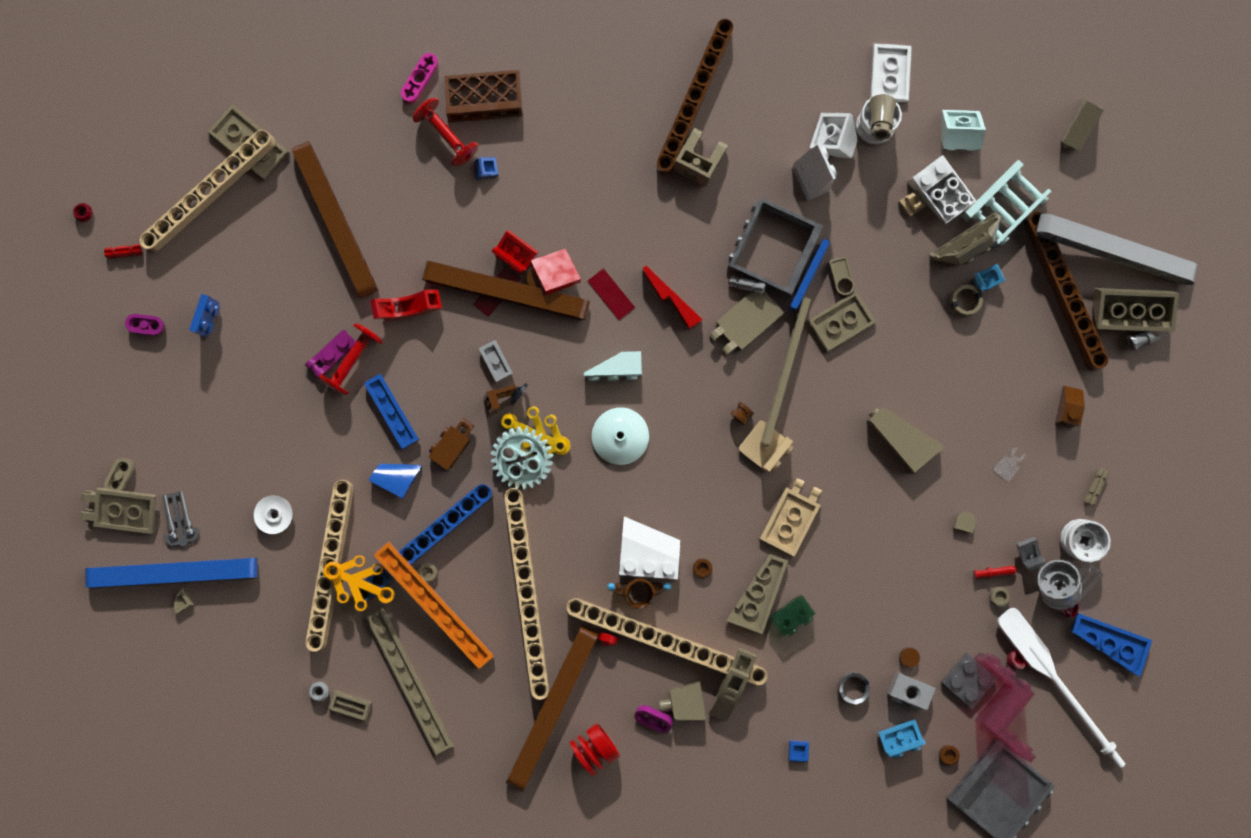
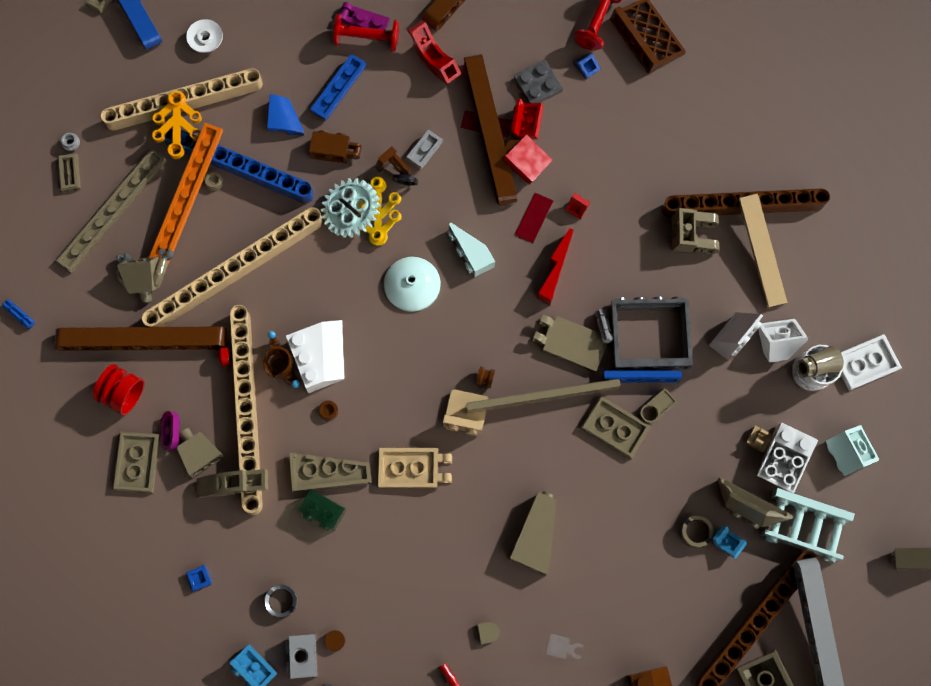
camera: 60 degrees right, 10 degrees down
(471, 812) = (18, 314): none -> blue axle
(481, 222) = (538, 83): none -> flat silver plate
(492, 680) = (142, 274): none -> dark tan torso
(622, 249) = (577, 206): none -> red tile
(666, 761) = (136, 462): none -> dark tan tile
(747, 107) = (762, 250): none -> tan tile

